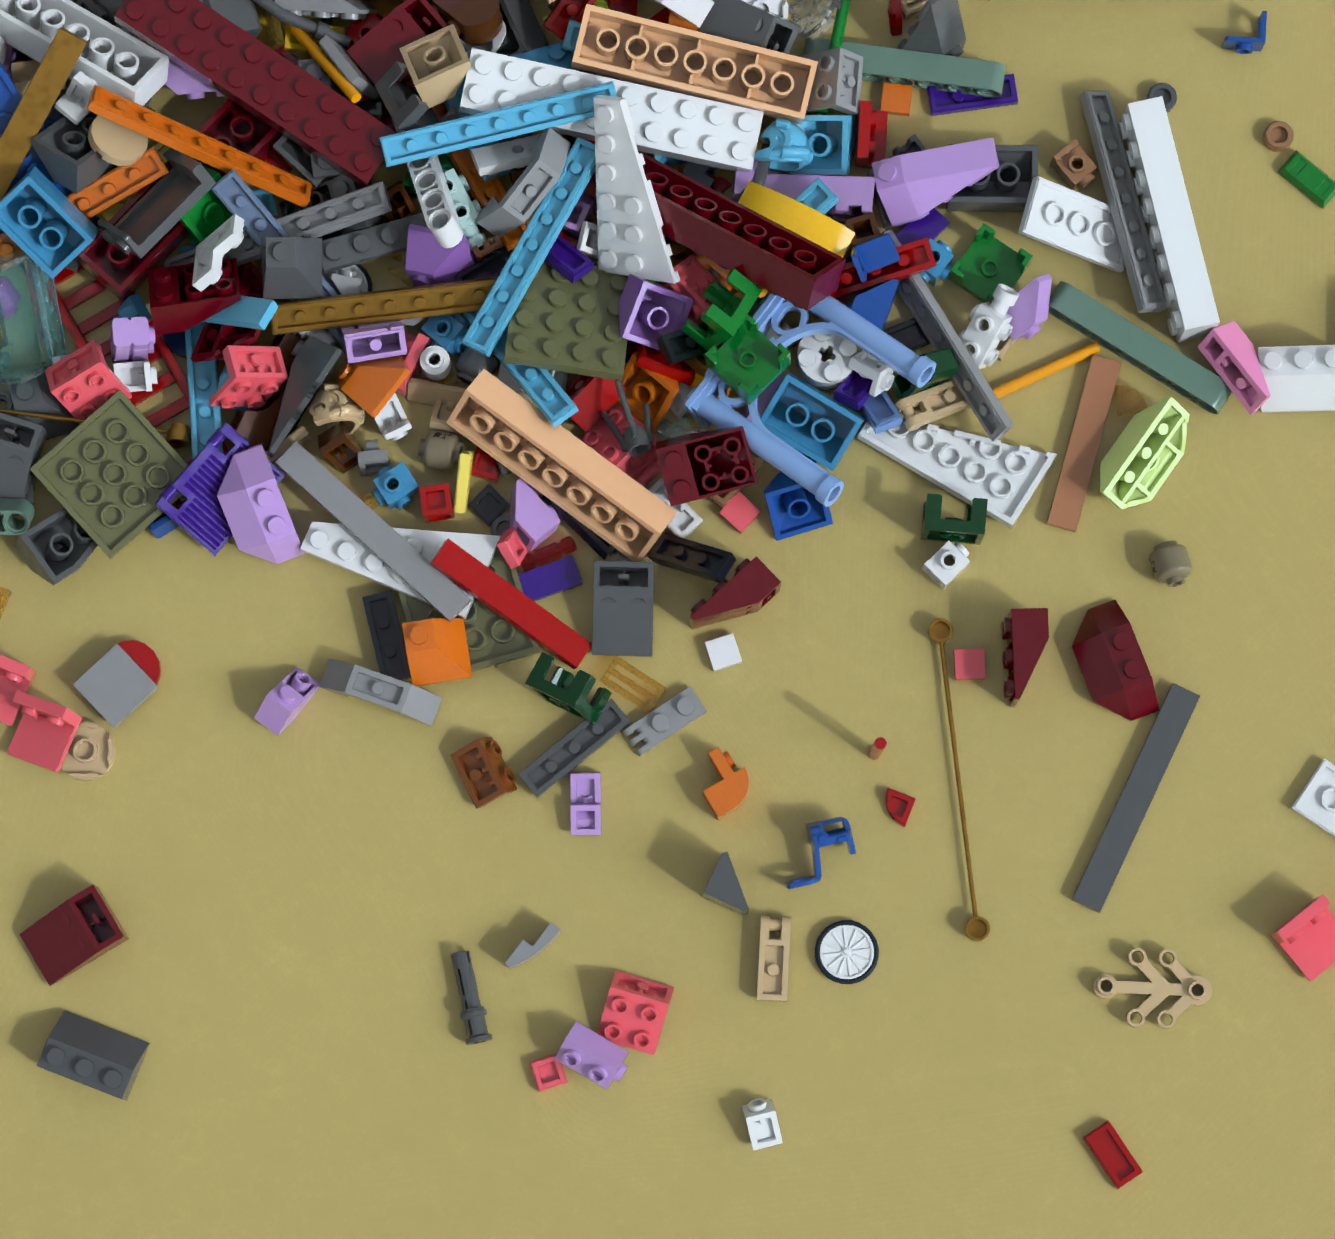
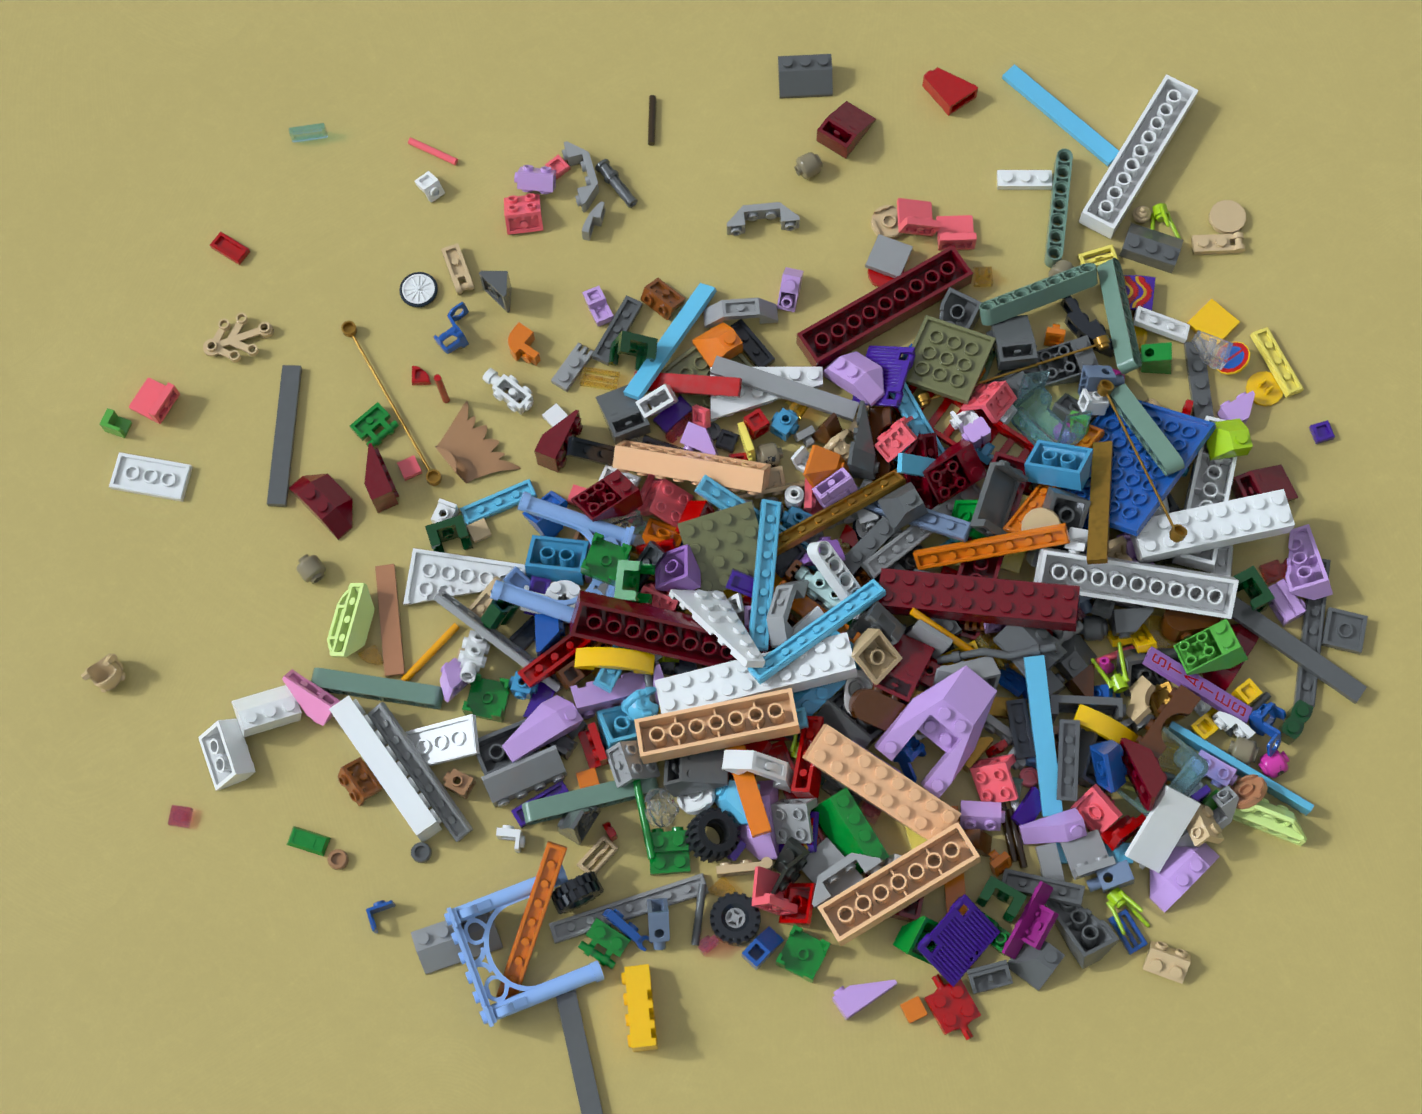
camera: 160 degrees right, 10 degrees down
(162, 603) = (884, 308): none -> dark red brick
(162, 894) = (808, 165): none -> dark tan head
(212, 249) = (953, 493): white plate -> none
(314, 843) = (788, 219): none -> light grey slope
(366, 1090) = (652, 120): none -> dark brown bar
(383, 279) = (849, 536): none -> red tile
(501, 690) = (670, 341): none -> medium azure tile
(529, 996) = (577, 155): none -> light grey slope
(566, 589) = (658, 399): none -> white torso
(636, 439) = (655, 498): dark grey plant -> none
(732, 1188) = (435, 152): none -> coral bar
(776, 709) = (515, 392): none -> white brick
(860, 554) = (496, 502): none -> medium azure tile
(874, 255) = (560, 658): blue bracket -> none
(876, 653) = (468, 452): none -> medium nougat piece
(905, 522) = (479, 530): none -> tan tile
(999, 760) = (372, 420): none -> green plate
(1006, 128) = (524, 776): none -> light grey slope
(1031, 67) = (509, 833): none -> white bracket
(1214, 226) = (359, 781): none -> dark orange bracket

